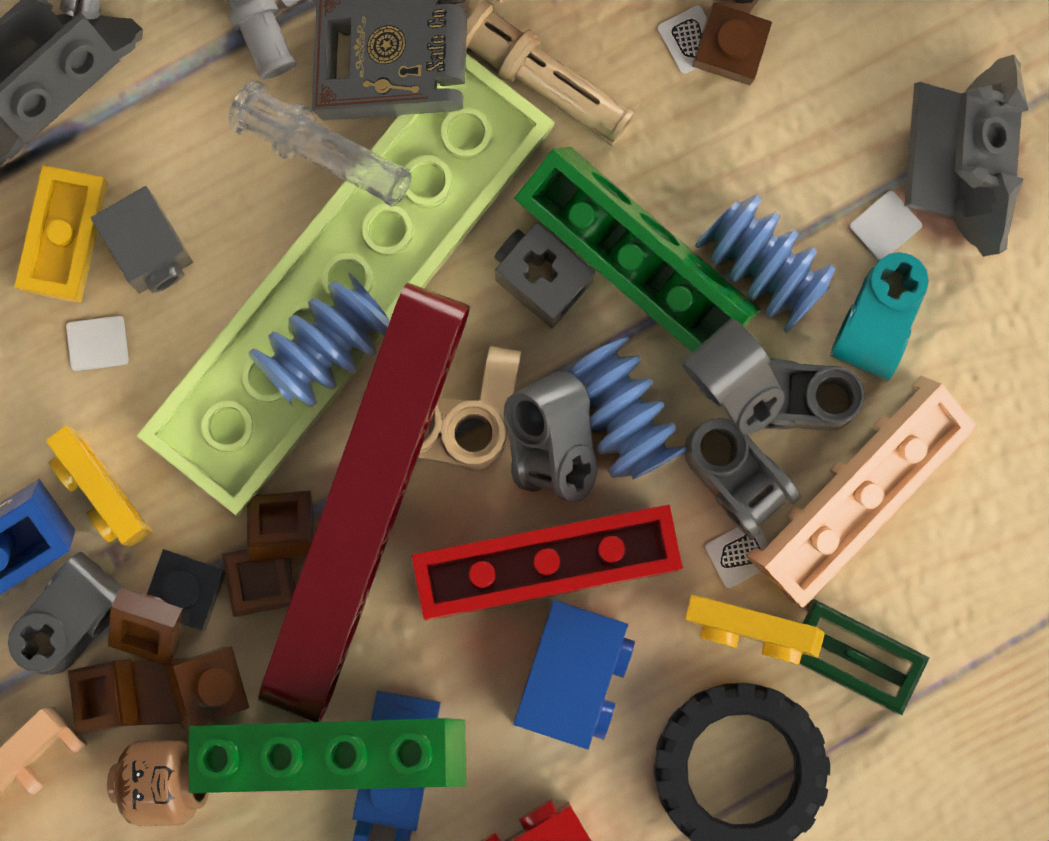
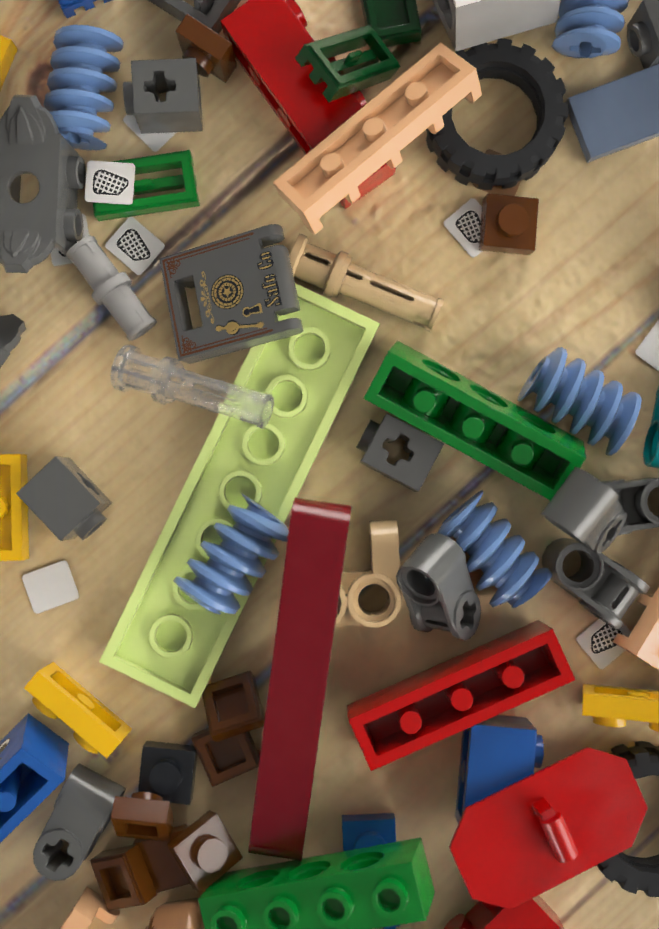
camera: 10 degrees left, 5 degrees up
(615, 738) = (548, 828): none -> red shield

